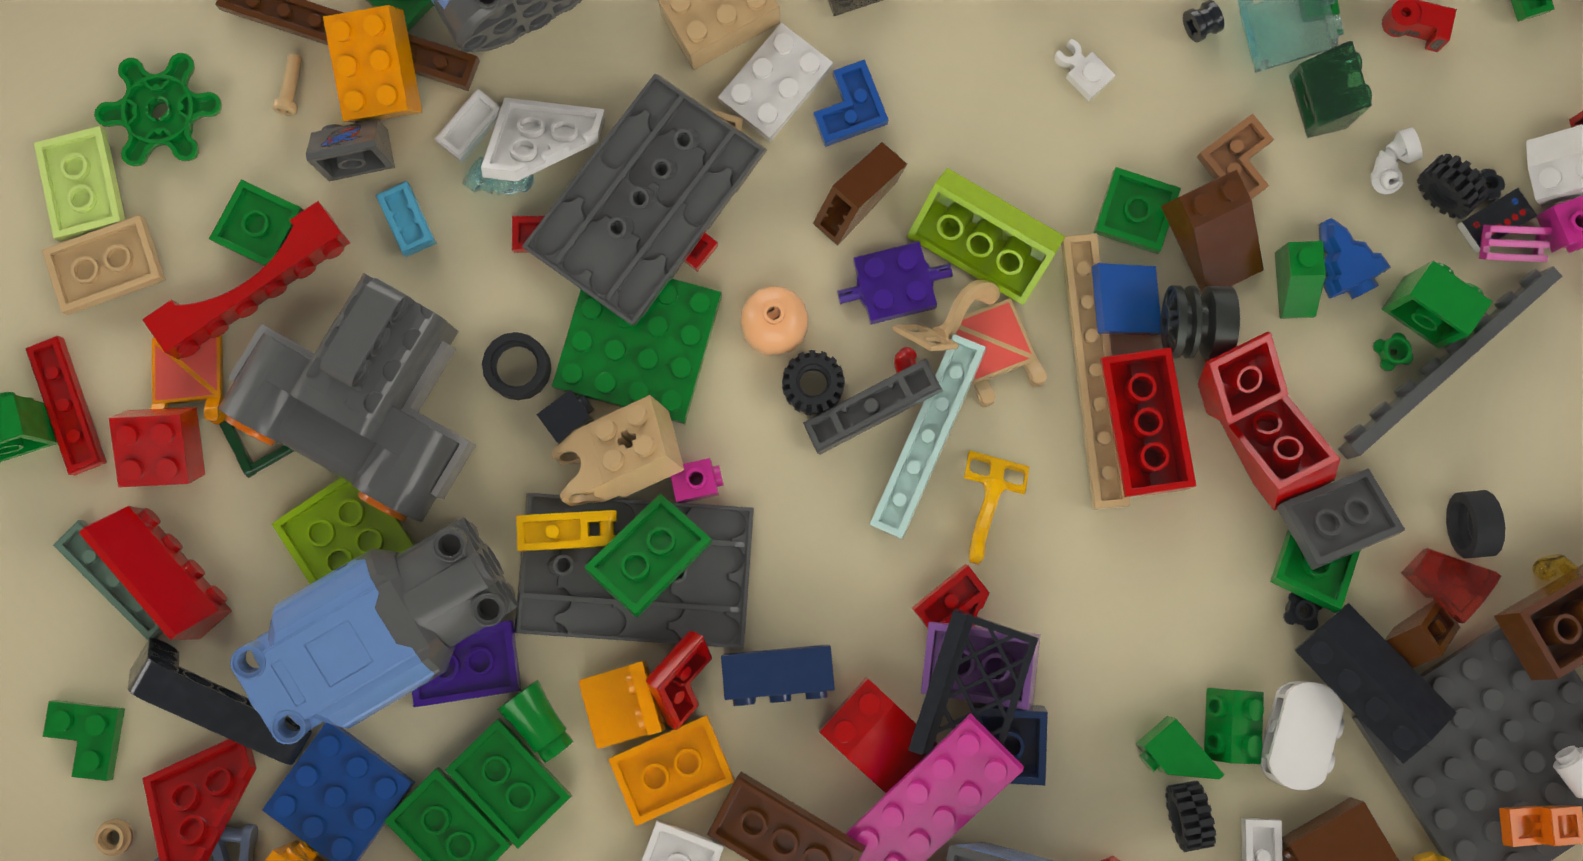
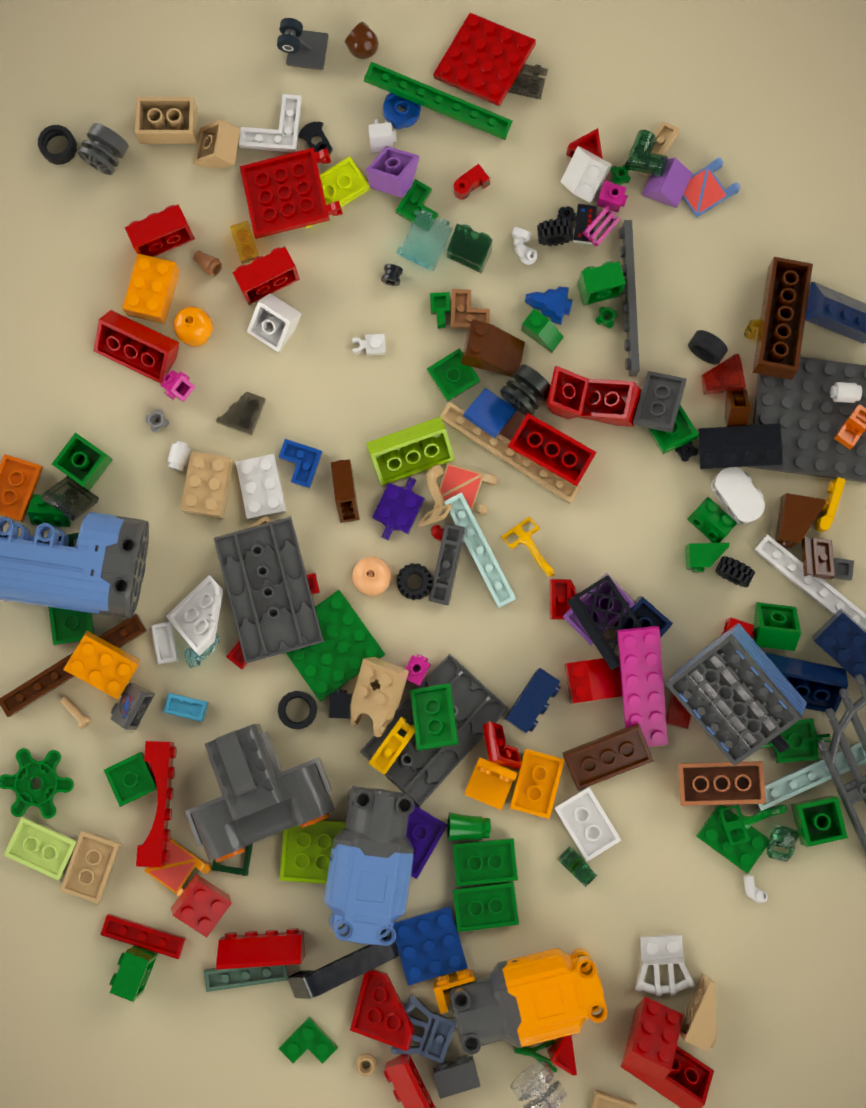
camera: 50 degrees left, 0 degrees up
(1215, 117) = (440, 305): none -> green plate

